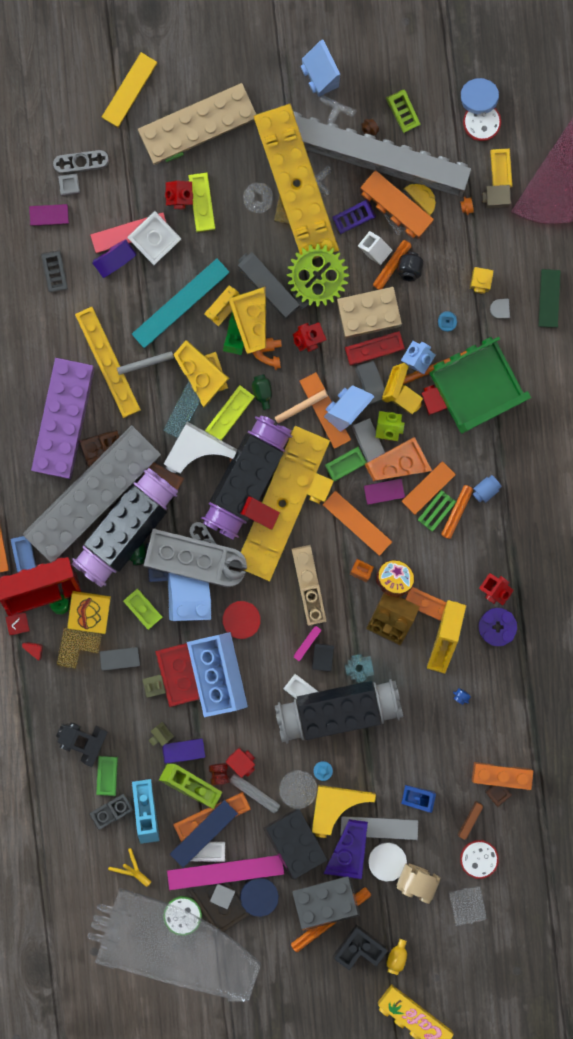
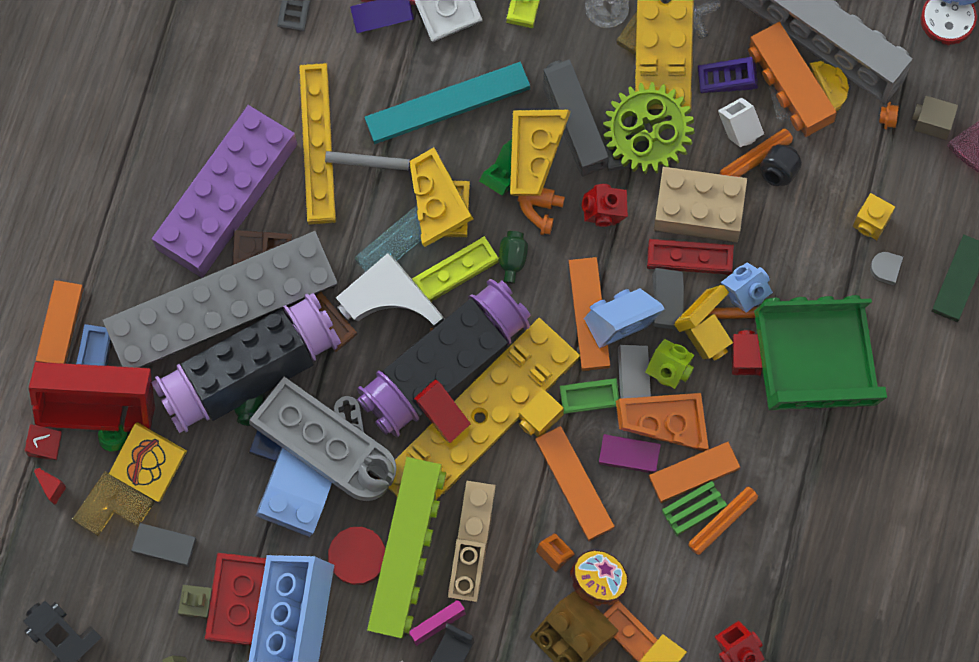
camera: 20 degrees right, 15 degrees down
(143, 609) = (225, 487): lime plate -> none
(221, 307) = (498, 129): yellow hinge -> none
(270, 605) = (405, 548): none -> lime brick
(301, 406) = (559, 294): light nougat bar -> none
(447, 321) = (805, 256): dark azure tile -> none
(486, 489) = (777, 503): medium blue brick -> none
(501, 167) = (955, 82): yellow tile -> none

